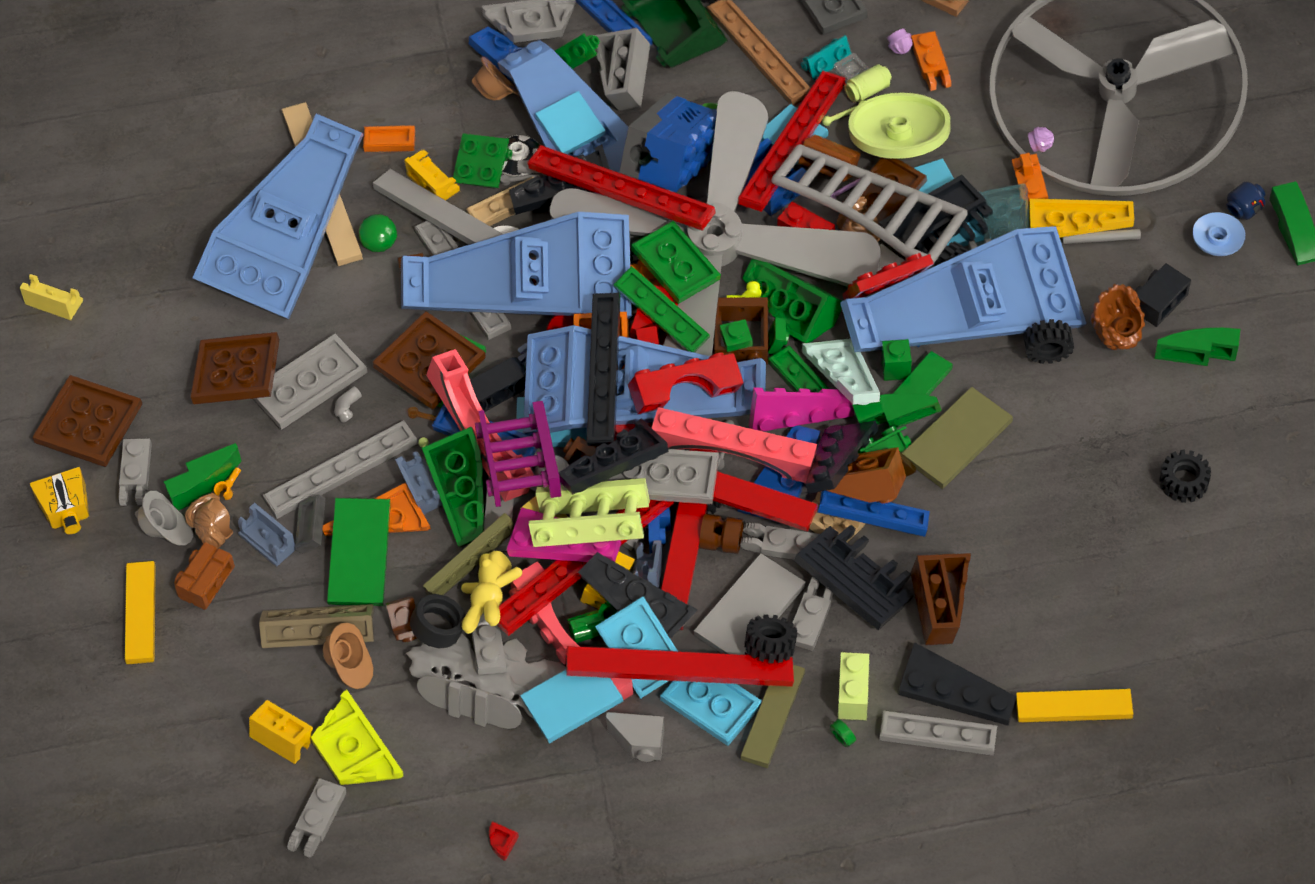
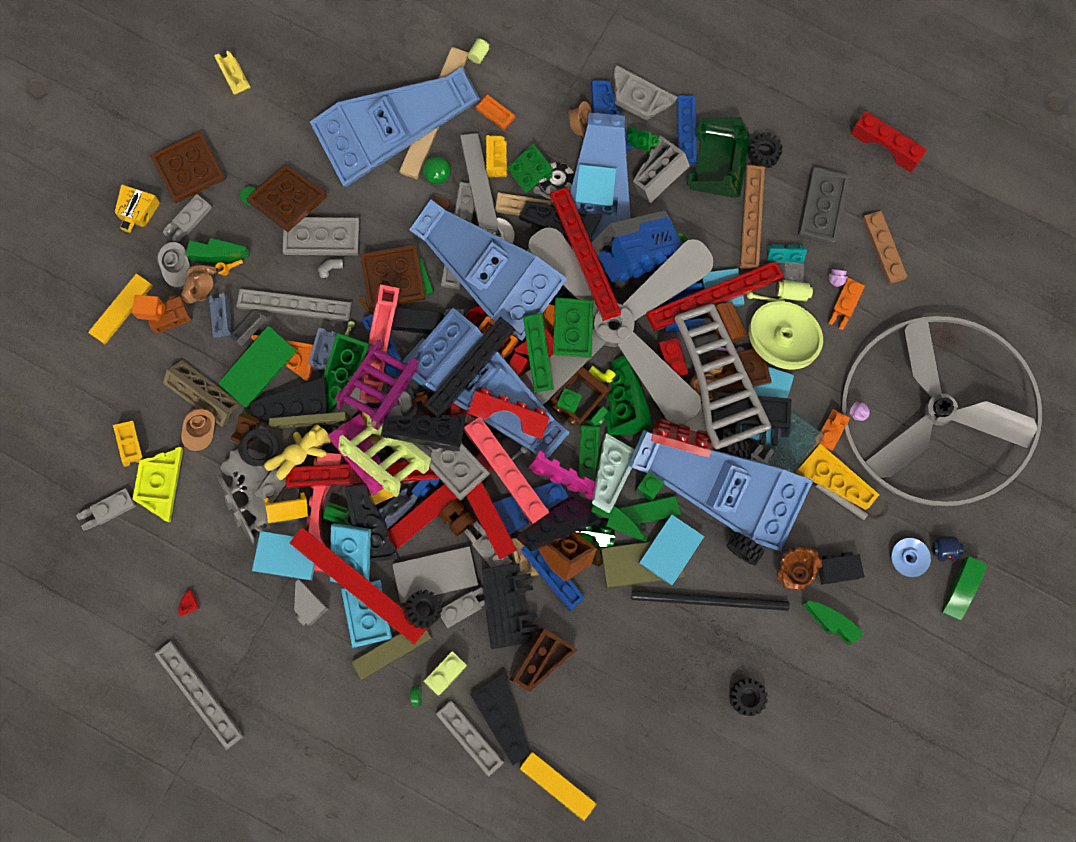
camera: 30 degrees right, 20 degrees up
(182, 571) = (148, 307): none -> orange brick
(183, 402) = (245, 192): none -> green tile
(315, 93) = (478, 51): none -> yellowish green piece
(436, 548) = (297, 401): none -> black wing
(526, 654) = (286, 510): none -> yellow hinge
(975, 399) = (671, 550): none -> medium azure tile
(1058, 421) = (710, 600): none -> black piece

